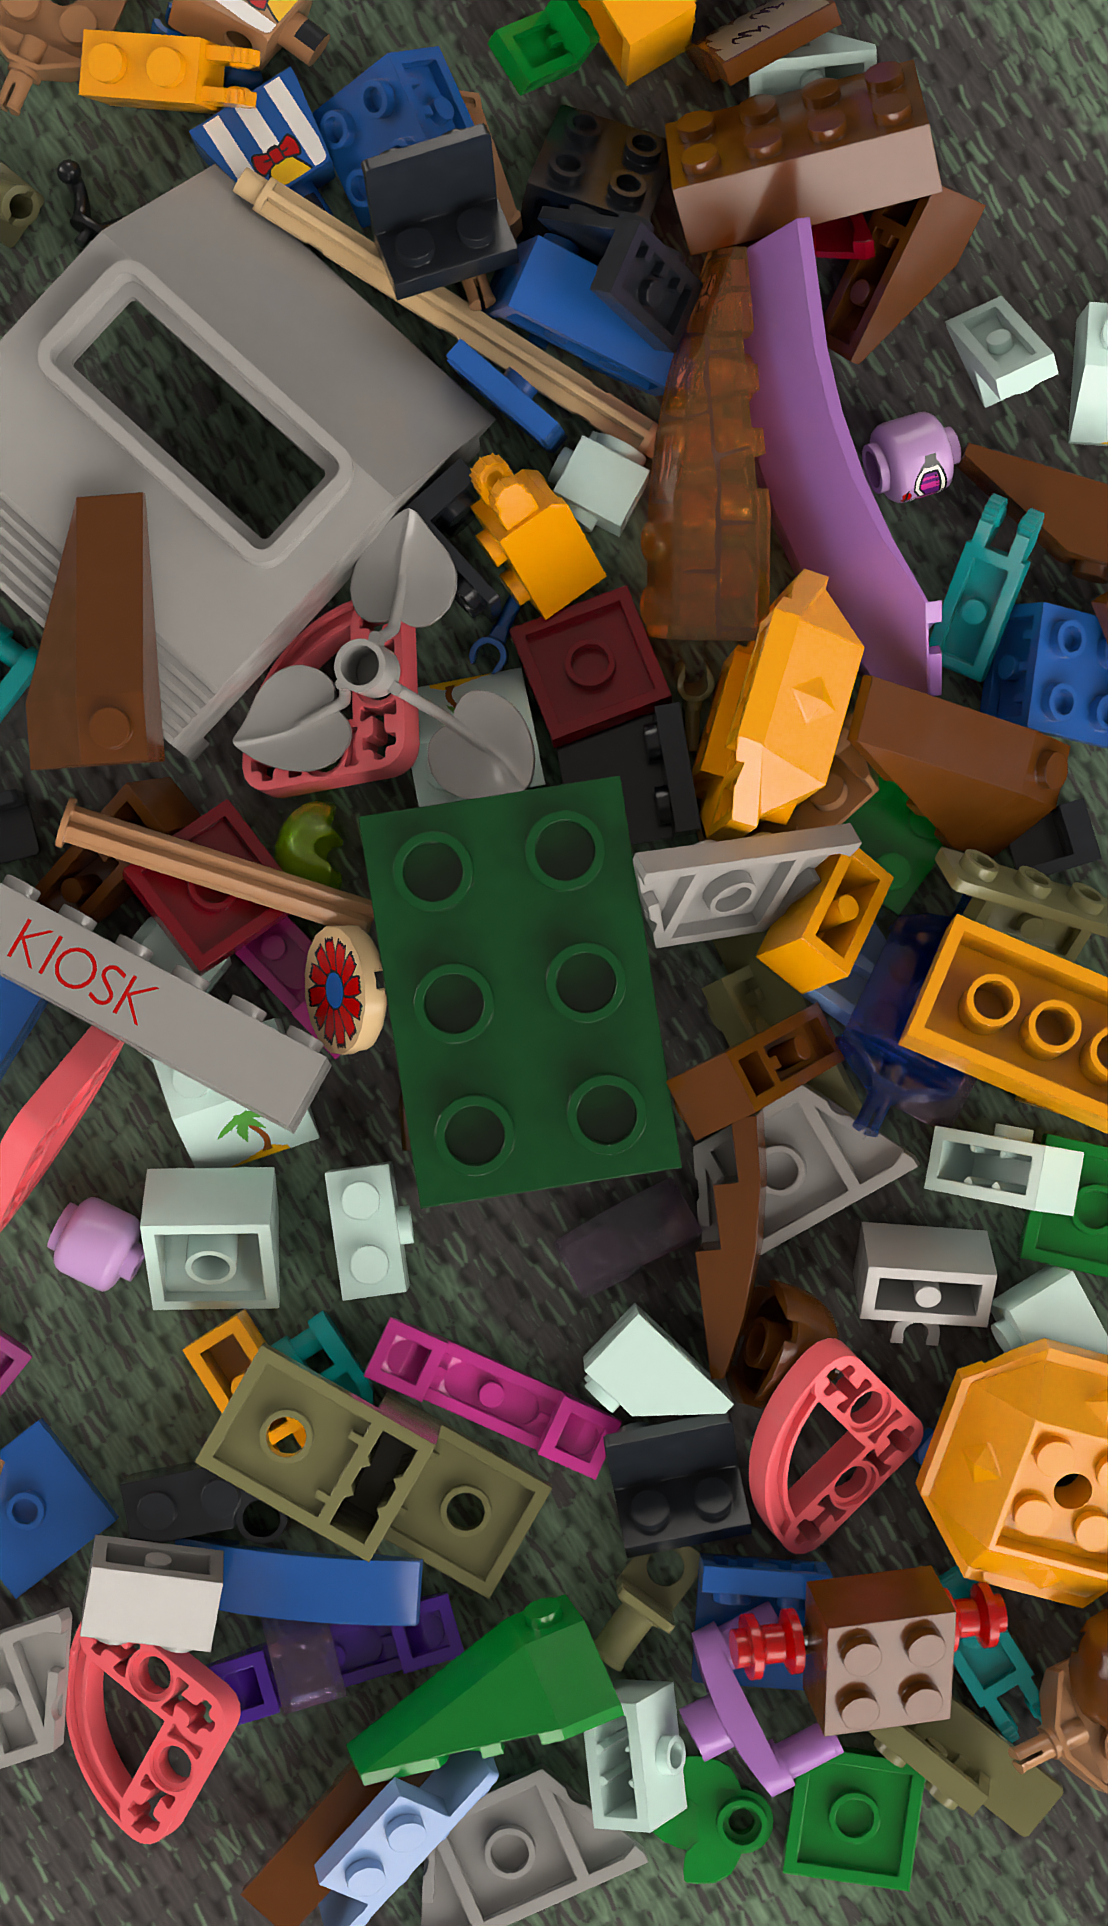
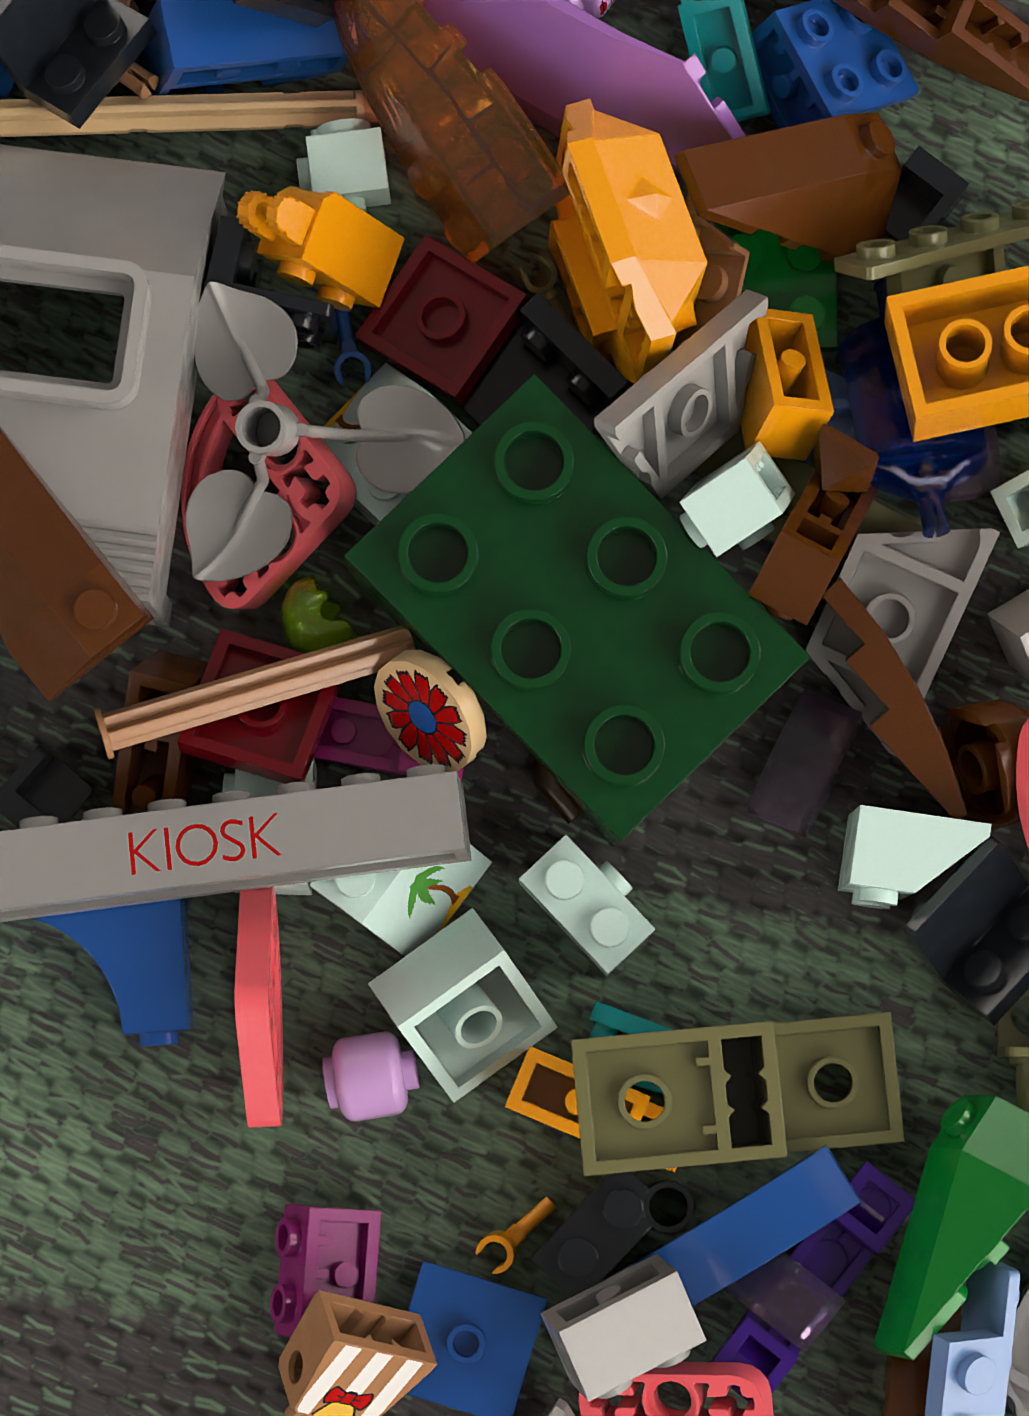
camera: 30 degrees left, 5 degrees down
(126, 1450) = (517, 1233): none -> light orange hand
(492, 1395) = (787, 971): dark pink slope -> none
(508, 394) = (222, 147): blue plate -> none
(713, 995) = (736, 502): none -> light aqua brick
(826, 1021) = (843, 462): none -> reddish brown slope

